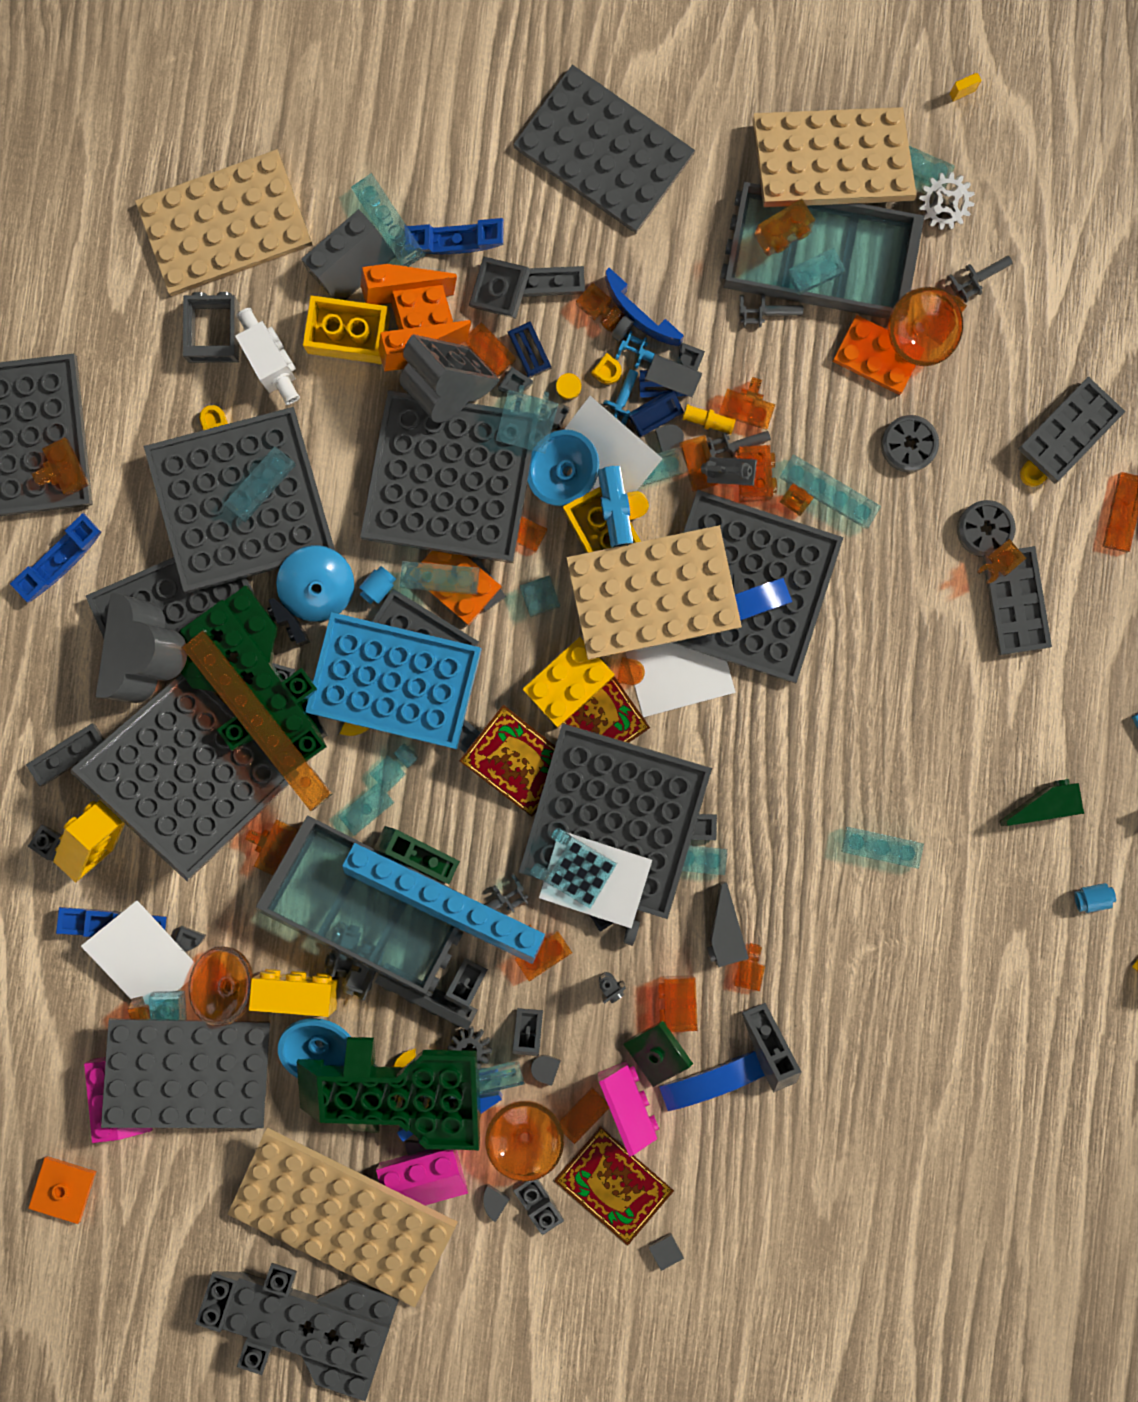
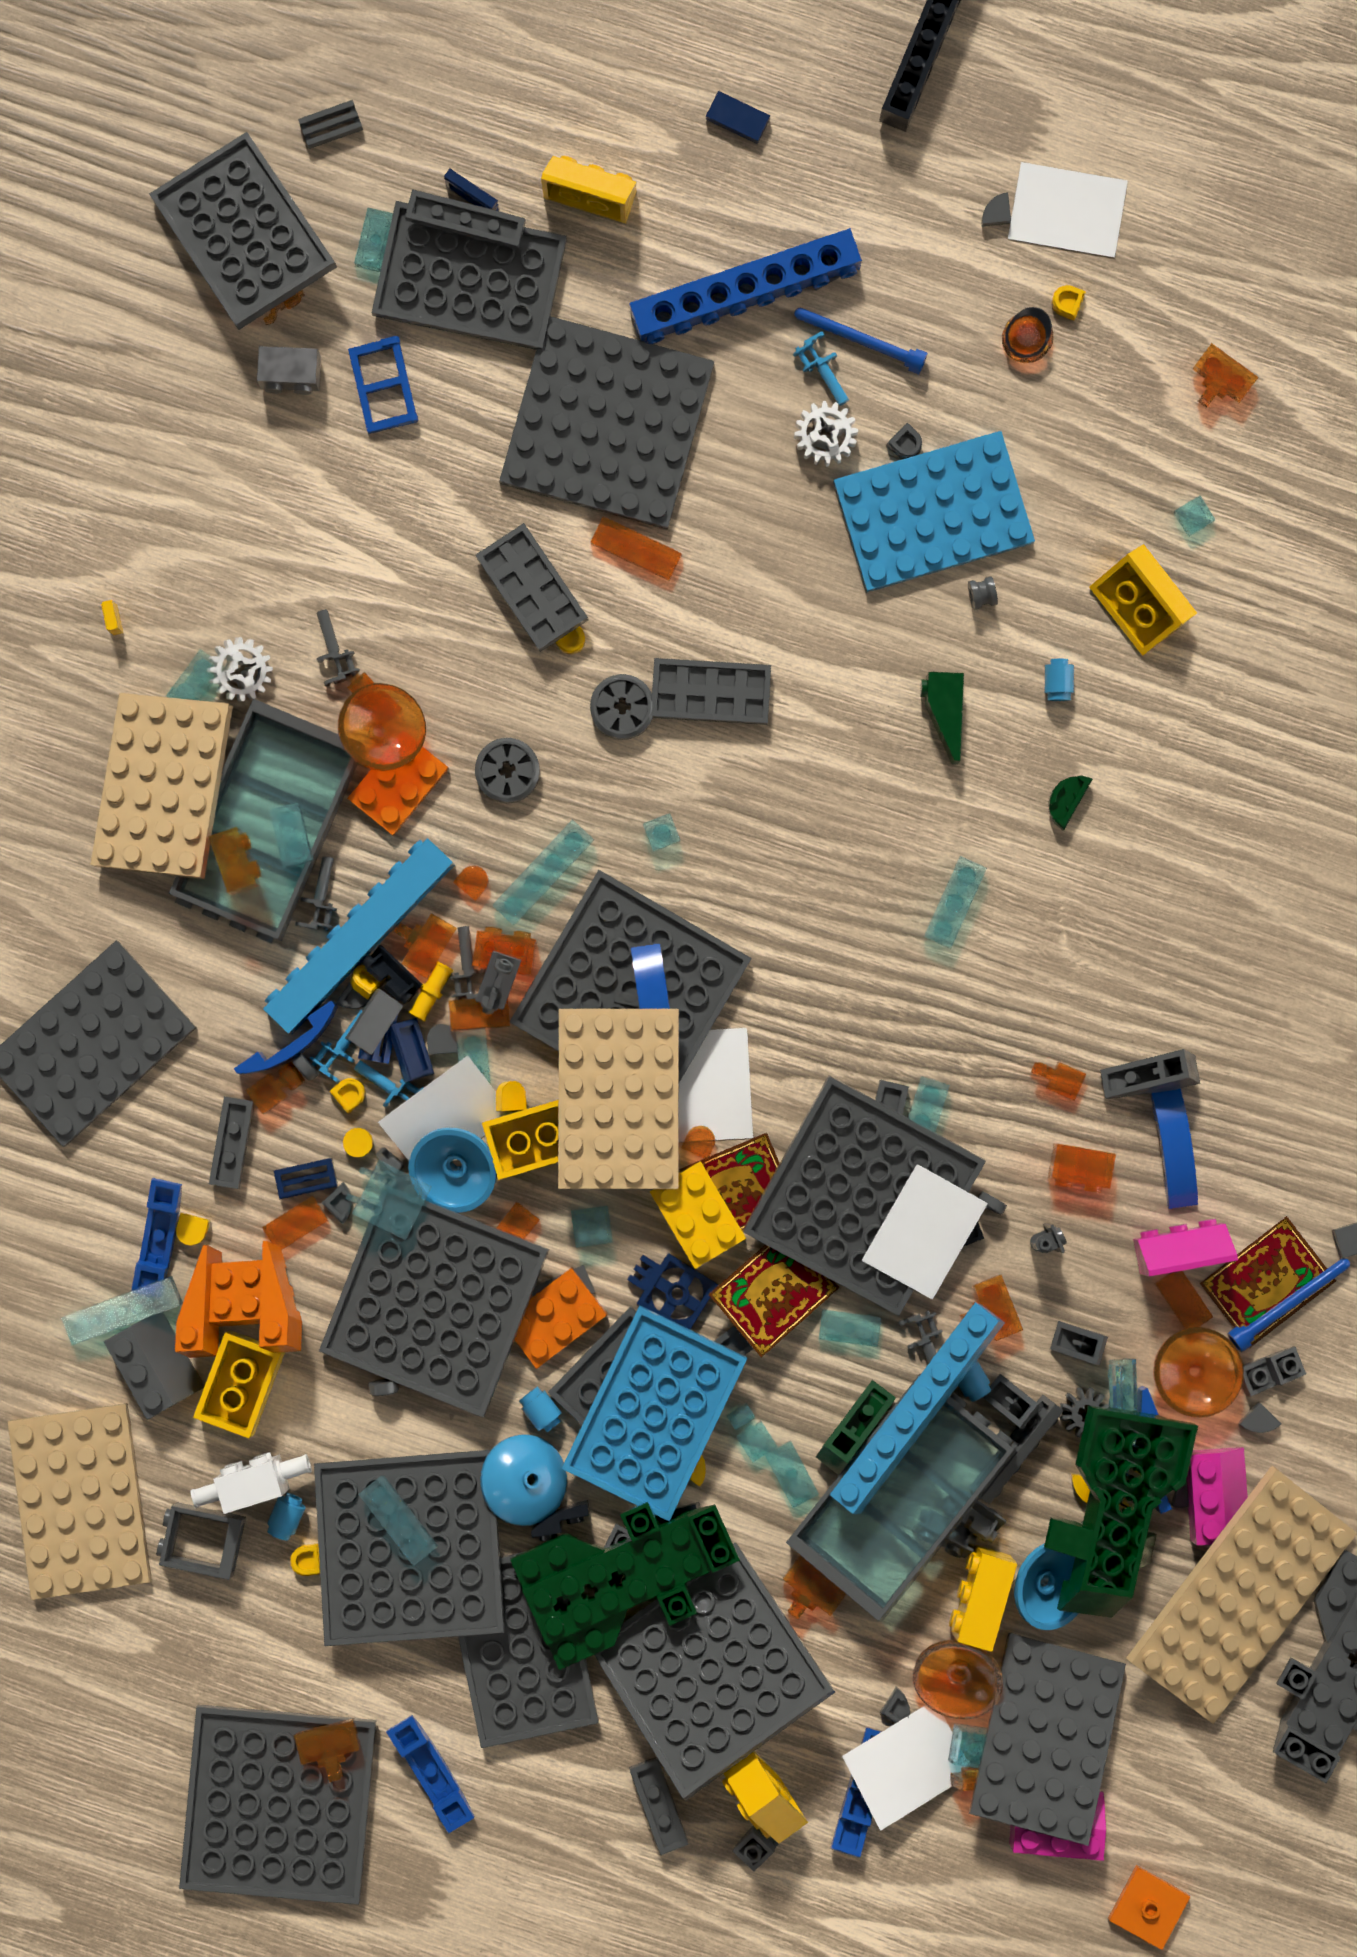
camera: 80 degrees left, 0 degrees up
(137, 650) = (560, 1697): dark grey brick -> none
(245, 393) = (286, 1516): none -> dark azure brick
(257, 721) = (670, 1577): clear orange tile -> none
(368, 450) = (383, 1387): none -> dark grey tile
(439, 577) = (548, 1336): clear light blue plate -> none
(444, 376) = (321, 1282): dark grey brick -> none
(467, 265) = (191, 1229): none -> yellow tile
(475, 949) = (975, 1383): none -> dark azure brick
(499, 287) = (228, 1198): dark grey tile -> none
(499, 832) = (849, 1327): none -> clear light blue plate
(506, 657) = (652, 1278): none -> dark blue piece
(545, 1068) = (1123, 1332): dark grey tile -> none
(564, 1175) = (1243, 1336): none -> blue piece
(579, 871) = (912, 1248): clear light blue flag -> none
(615, 506) = (512, 1121): dark azure piece -> none
(658, 1053) = (1132, 1202): dark green plate -> none
(708, 363) = (364, 982): none -> yellow tile
(712, 390) = (399, 980): none -> black hinge
(725, 935) = (1017, 1098): dark grey slope -> none
(743, 349) = (358, 936): none -> dark azure brick
(796, 499) = (544, 912): clear orange plate -> none
(809, 435) = (472, 881): none -> clear orange tile
(886, 584) = (661, 832): none -> clear light blue plate
(993, 925) = (1066, 798): none -> dark green plate
(1003, 559) = (663, 697): clear orange plate -> none

